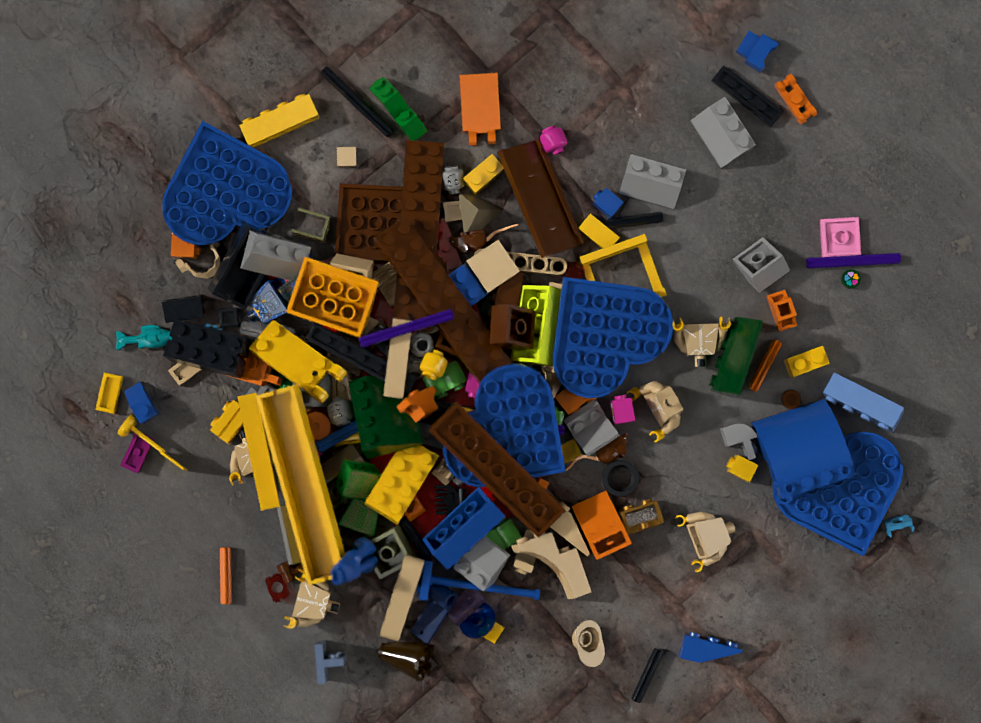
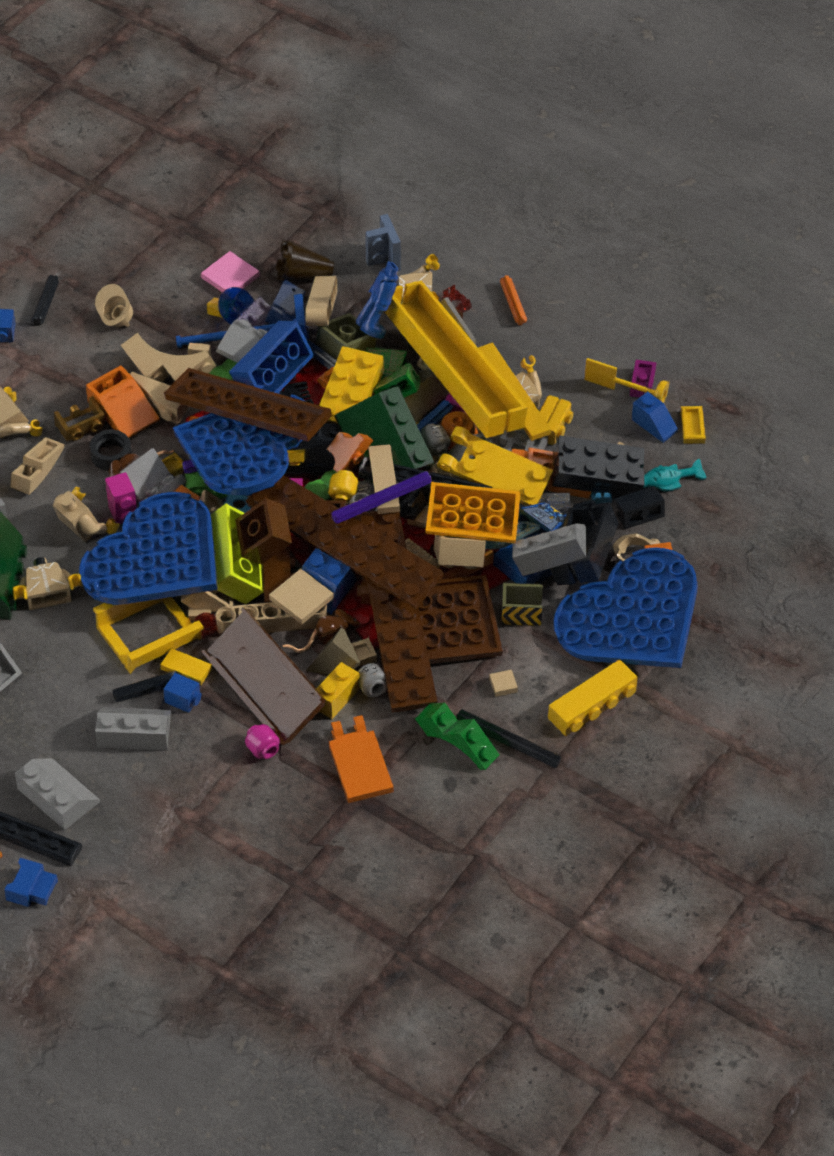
camera: 170 degrees right, 35 degrees down
(474, 669) = (230, 272): none -> bright pink tile
(686, 476) = (36, 465): none -> tan slope

